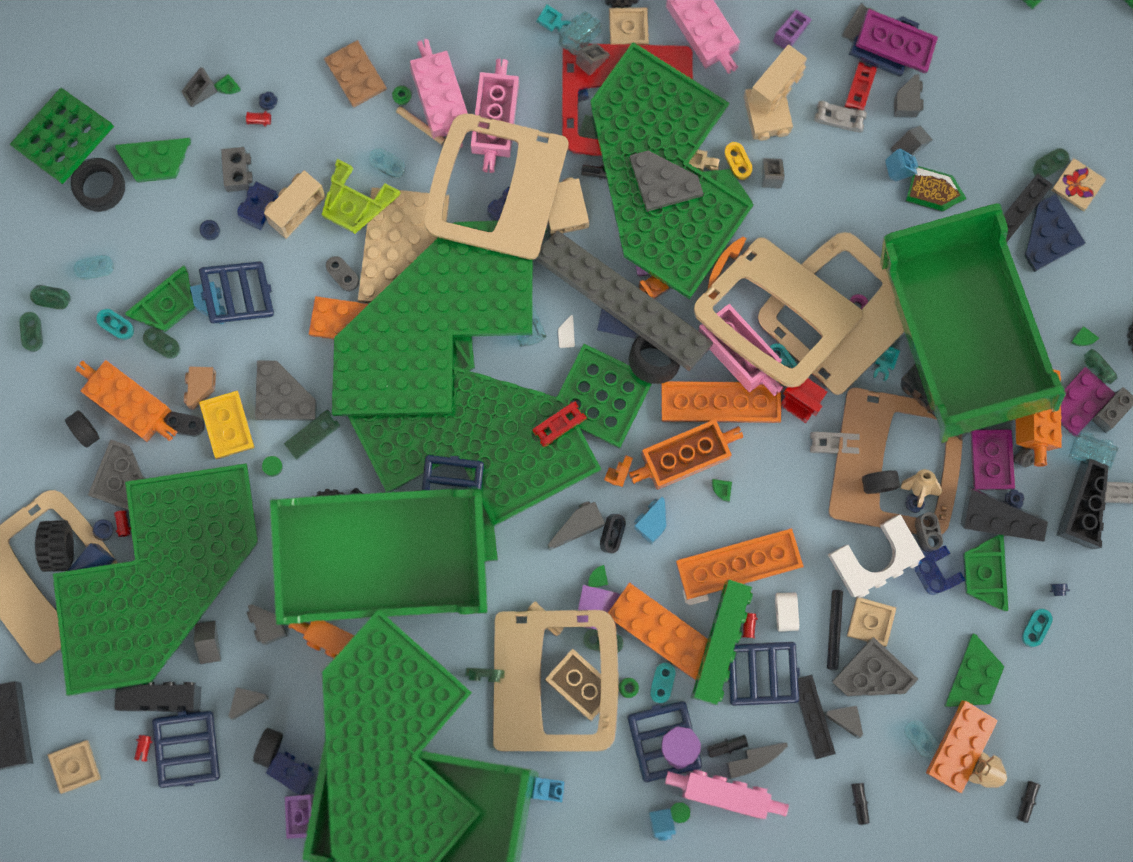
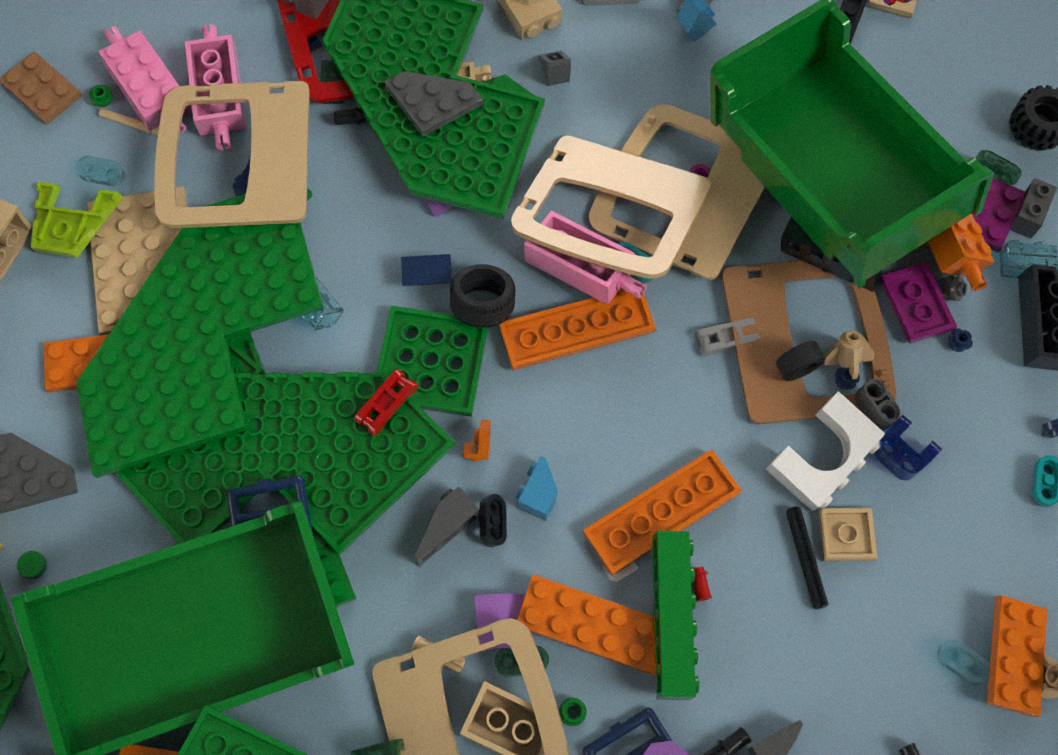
camera: 15 degrees left, 10 degrees down
(311, 435) = (76, 511): clear green plate -> none
(341, 273) = (71, 307): dark grey plate -> none
(566, 334) = (368, 303): white sticker -> none
(568, 208) = (329, 163): tan brick -> none
(598, 577) = (491, 581): green tile -> none
(624, 300) = (426, 242): dark grey plate -> none
(653, 287) = (455, 223): orange bracket -> none
(663, 683) = (614, 691): teal plate -> none
(686, 454) = (554, 398): orange brick -> none
(722, 489) = (611, 428): green tile -> none
(733, 252) = (534, 160): orange slope -> none
(738, 161) = (514, 63): yellow plate -> none
(773, 698) = (763, 667): dark blue bar -> none
(787, 611) = (741, 552): white beam -> none
(804, 400) = (674, 295): red plate -> none
(814, 718) = (820, 676): black plate -> none
(848, 719) = (865, 666): dark grey slope -> none
(874, 673) = (875, 596): dark grey plate -> none
(886, 361) = (755, 229): teal plate -> none
(934, 190) = (734, 33): tile -> none
(976, 675) = (998, 562): green wing -> none
(987, 573) = (963, 434): green wing -> none
(996, 516) = (945, 362): black wedge -> none
(1051, 234) = (888, 45): dark blue plate -> none
(1084, 338) = (967, 143): green tile -> none

